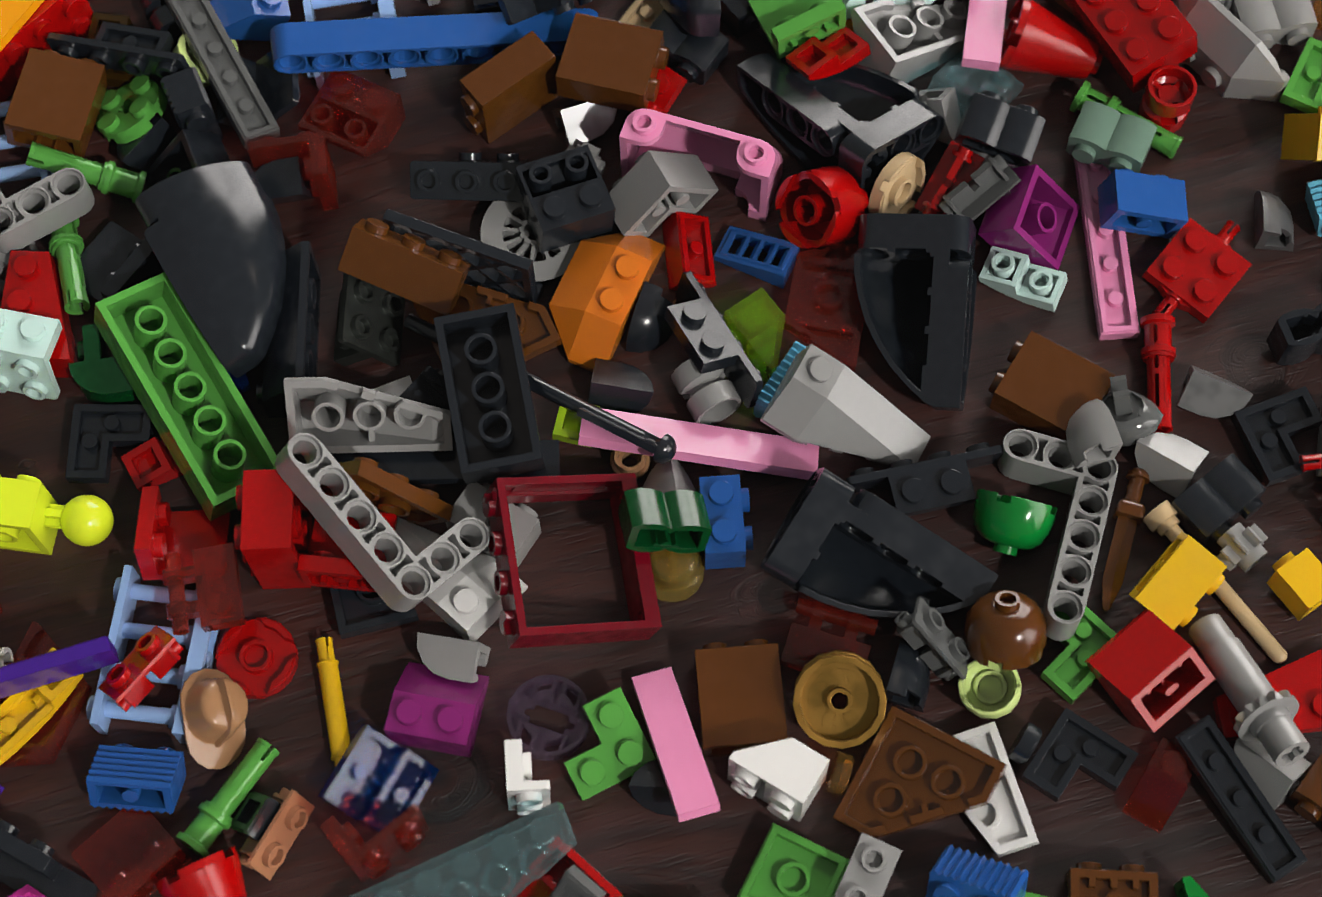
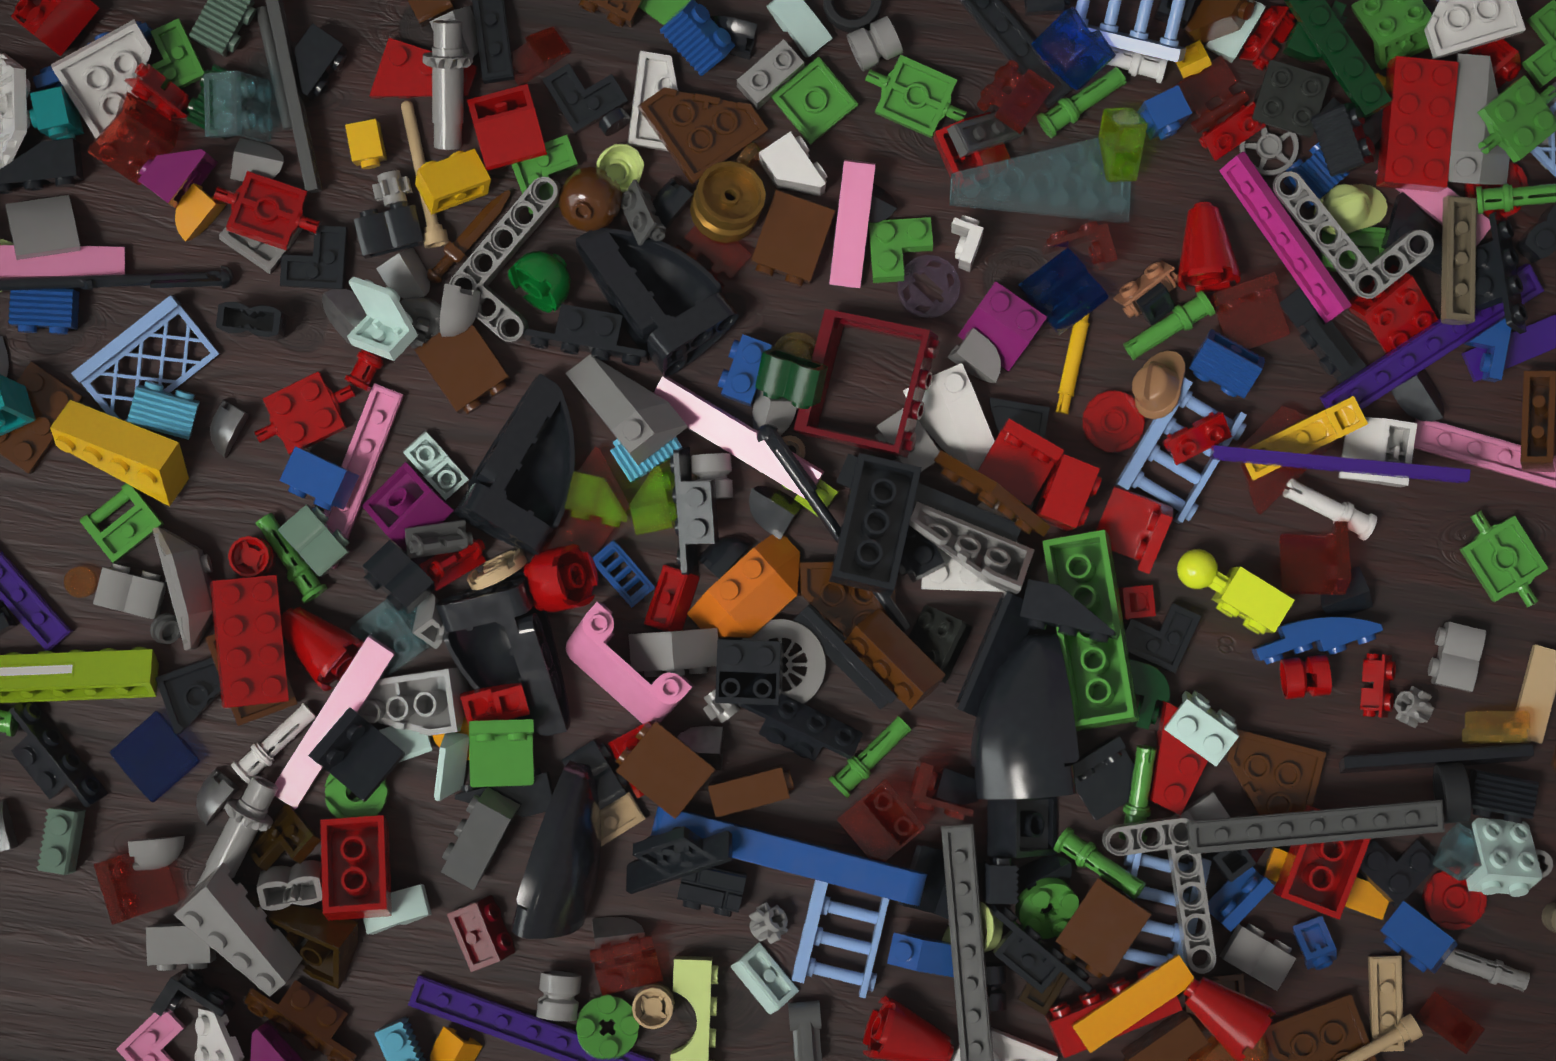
camera: 155 degrees left, 20 degrees up
(217, 589) = (1123, 473): clear red plate -> none
(231, 389) = (1053, 606): none -> black slope
(374, 529) = (1002, 444): light grey beam -> none
(409, 148) = (859, 766): none -> bright green pin
(825, 304) = (595, 497): none -> clear neon green slope
(1169, 371) = (387, 327): none -> light aqua bracket

